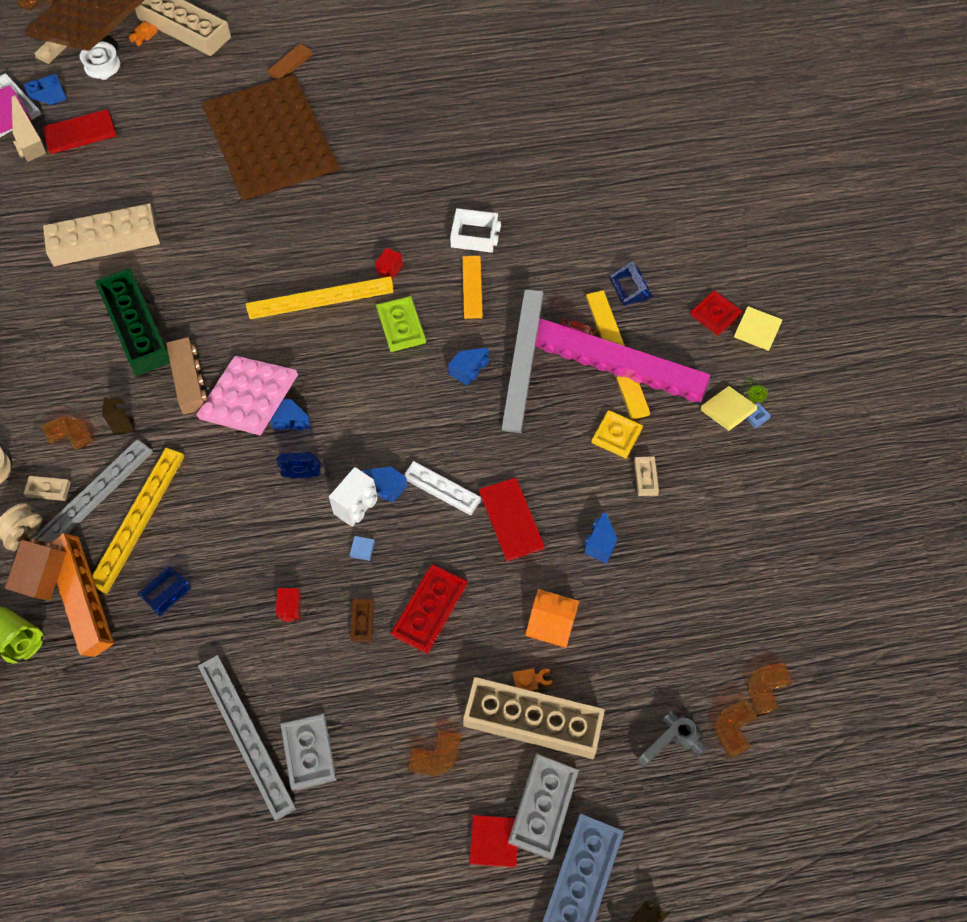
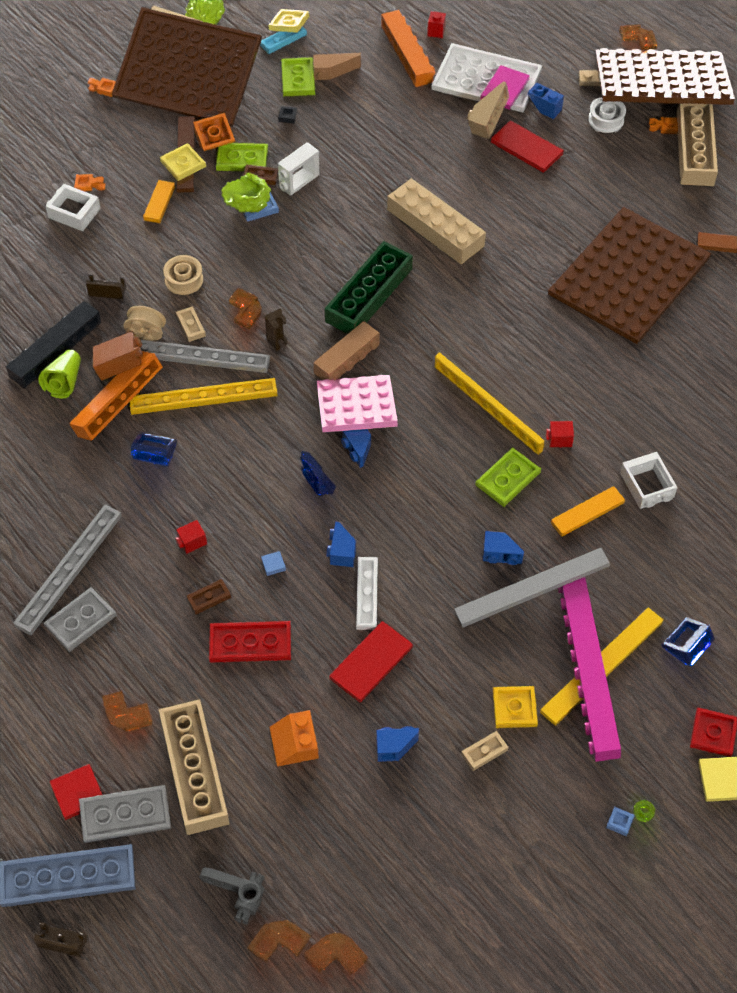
camera: 60 degrees right, 5 degrees down
(353, 497) = (309, 528): white brick -> none
(529, 680) = (228, 750): orange plate -> none
(577, 326) = (599, 614): clear red tile -> none
(728, 408) = (607, 790): light yellow tile -> none

